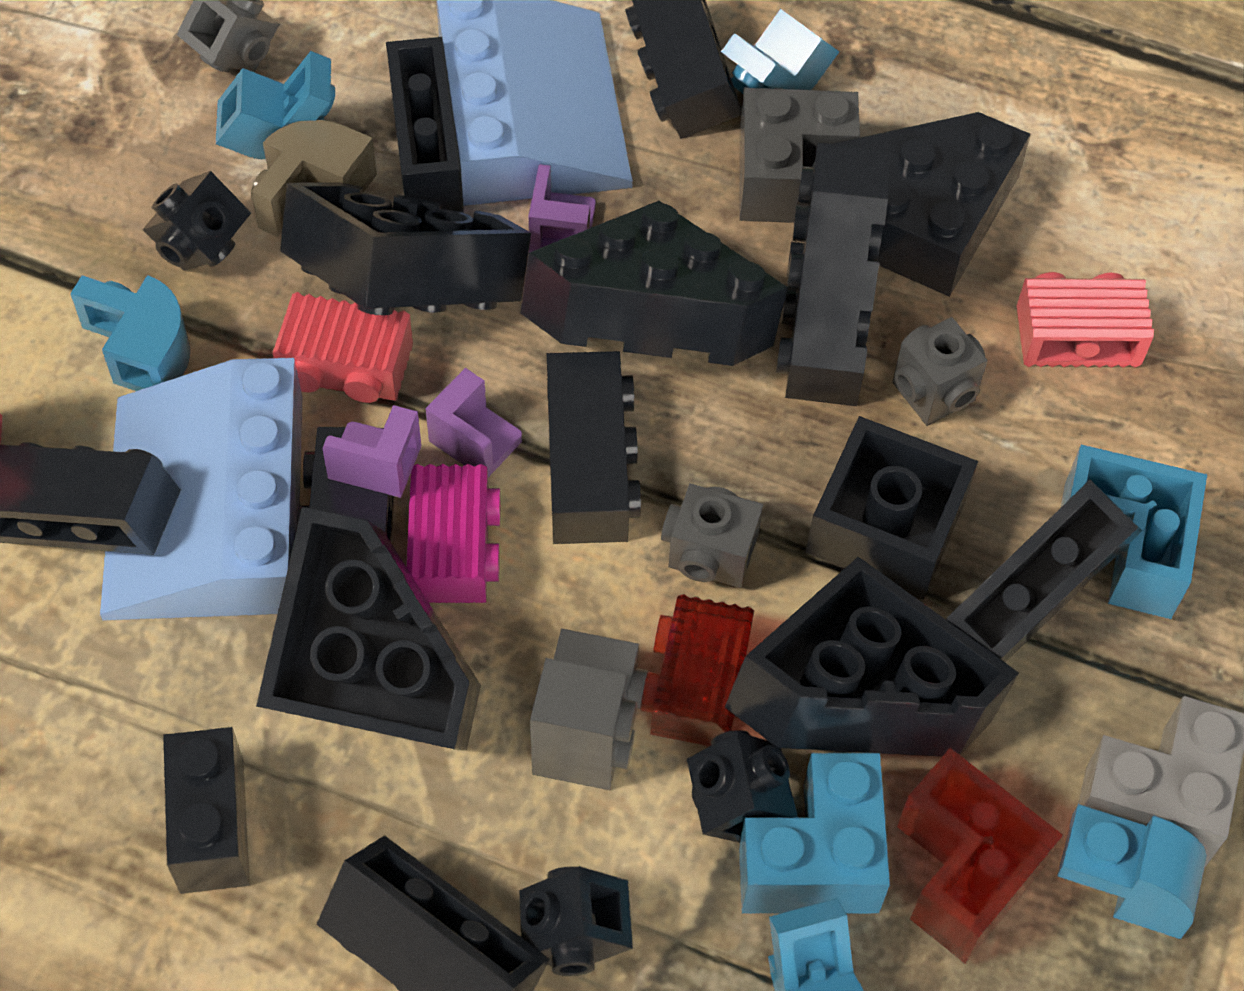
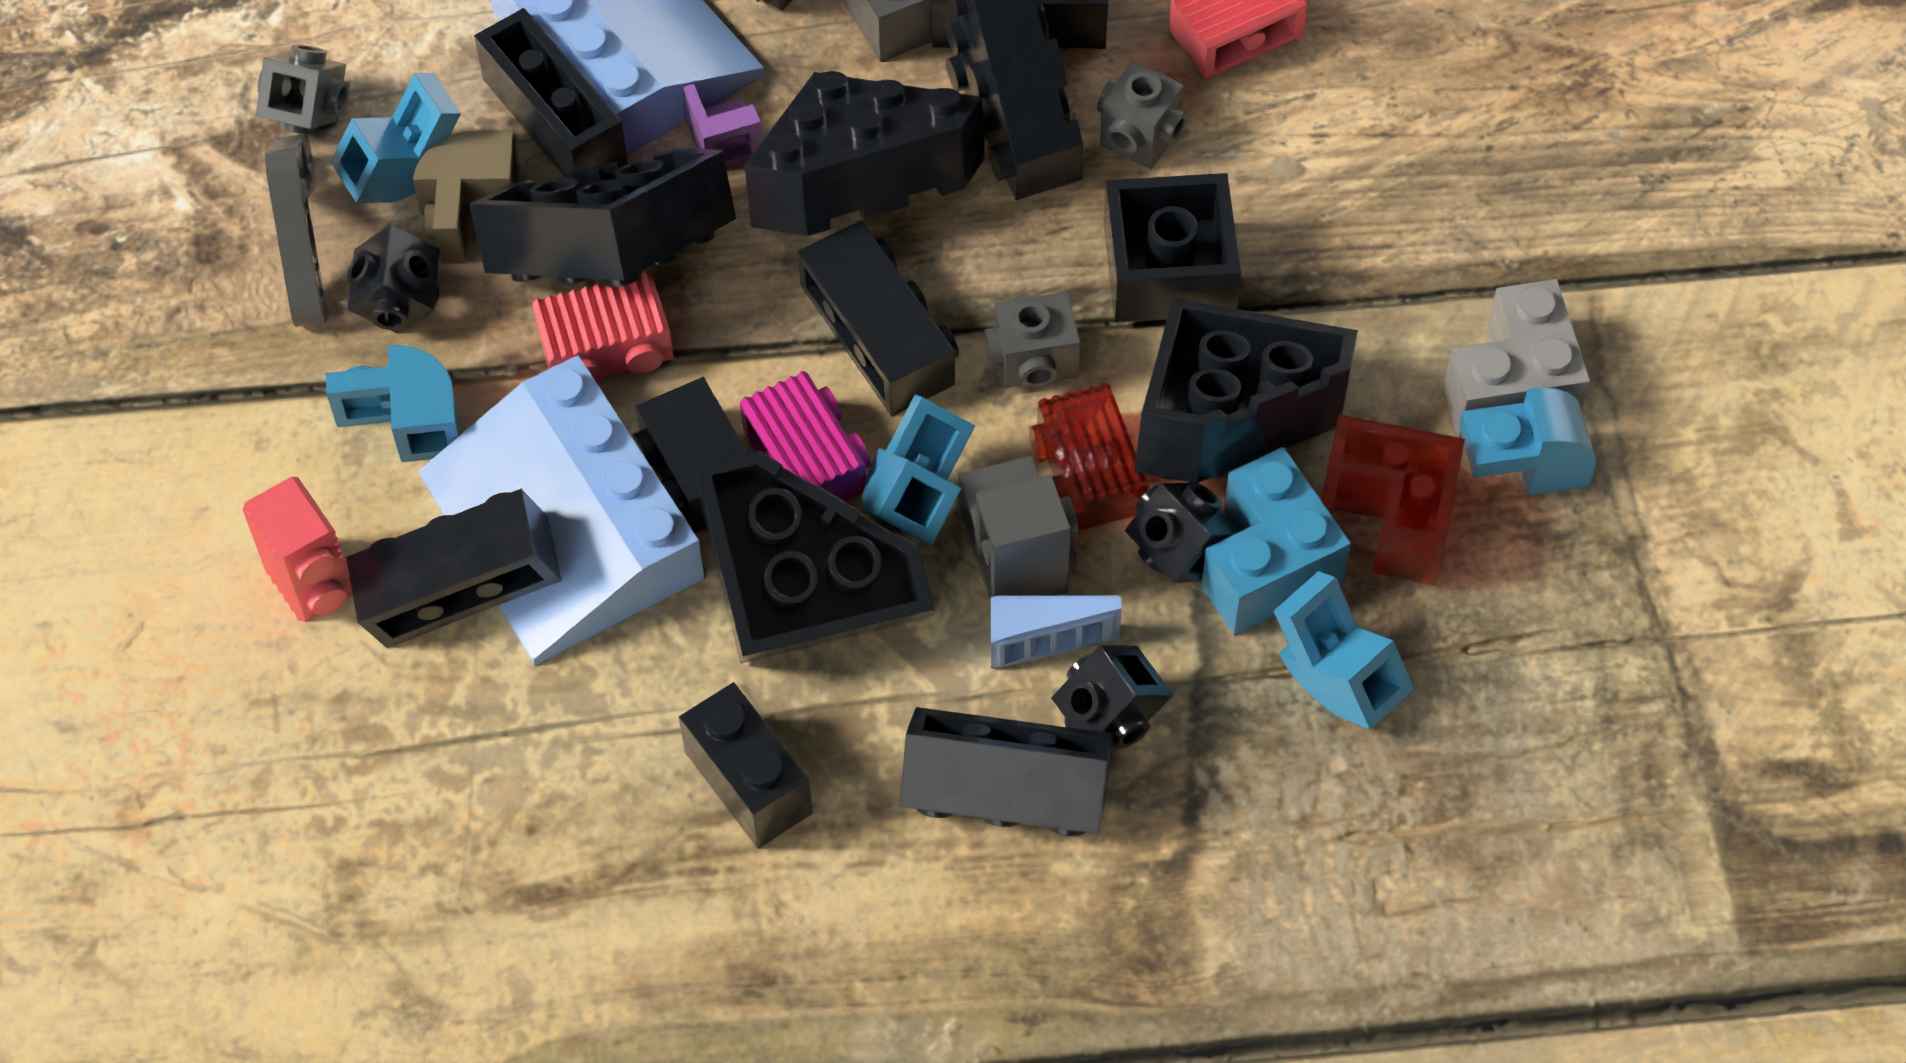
camera: 25 degrees left, 0 degrees up
(145, 98) = (290, 183): none -> dark grey beam
(376, 456) = (712, 404): medium lavender panel -> none
(468, 429) = (759, 353): medium lavender panel -> none
(524, 606) = (910, 478): none -> dark azure brick
(554, 813) = (1050, 625): none -> light blue slope
(1045, 572) = (1336, 236): black brick -> none
(1166, 505) = (1383, 159): dark azure brick -> none

